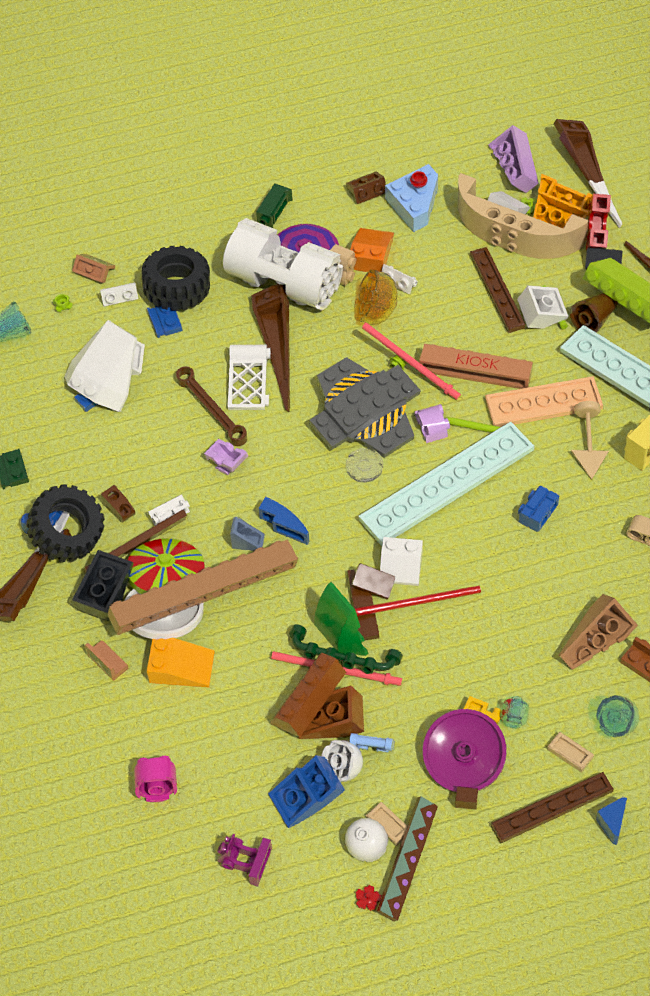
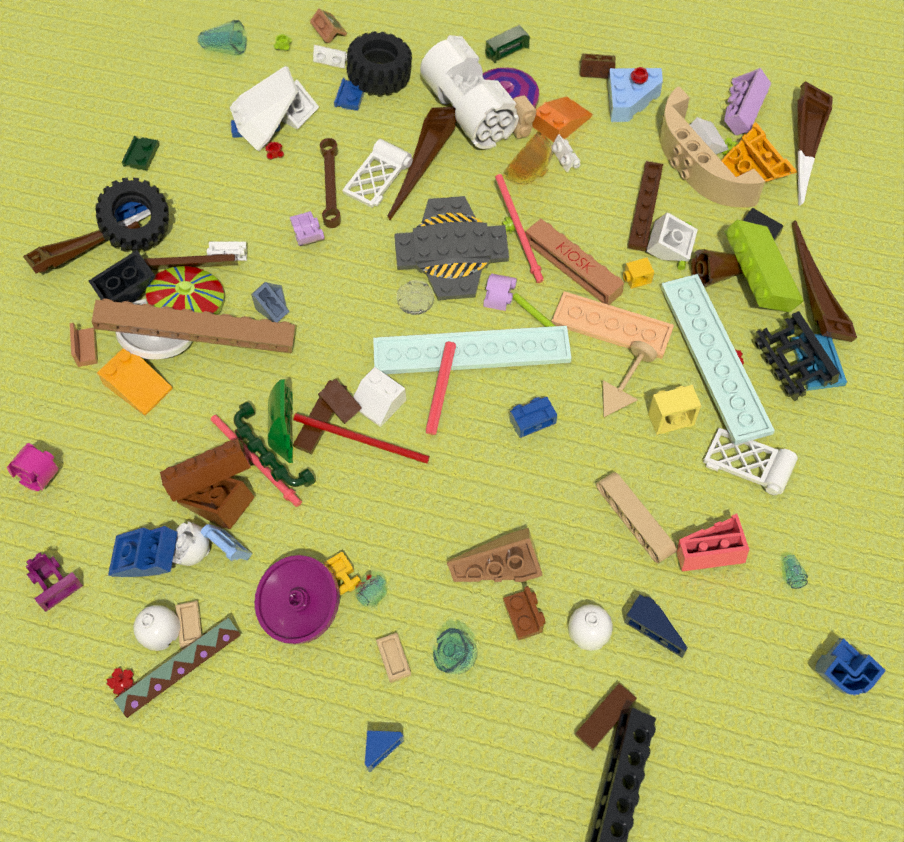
camera: 30 degrees right, 5 degrees up
(117, 503) = (193, 223): reddish brown leg -> none
(136, 399) = (274, 150): none -> red plate
(283, 520) = (309, 307): blue slope -> none
(447, 525) = (440, 389): none -> coral axle
(466, 797) = (268, 642): reddish brown slope -> none
(535, 348) = (638, 273): none -> yellow brick
(552, 807) = (338, 699): reddish brown tile -> none
(597, 218) = (777, 187): arch -> none

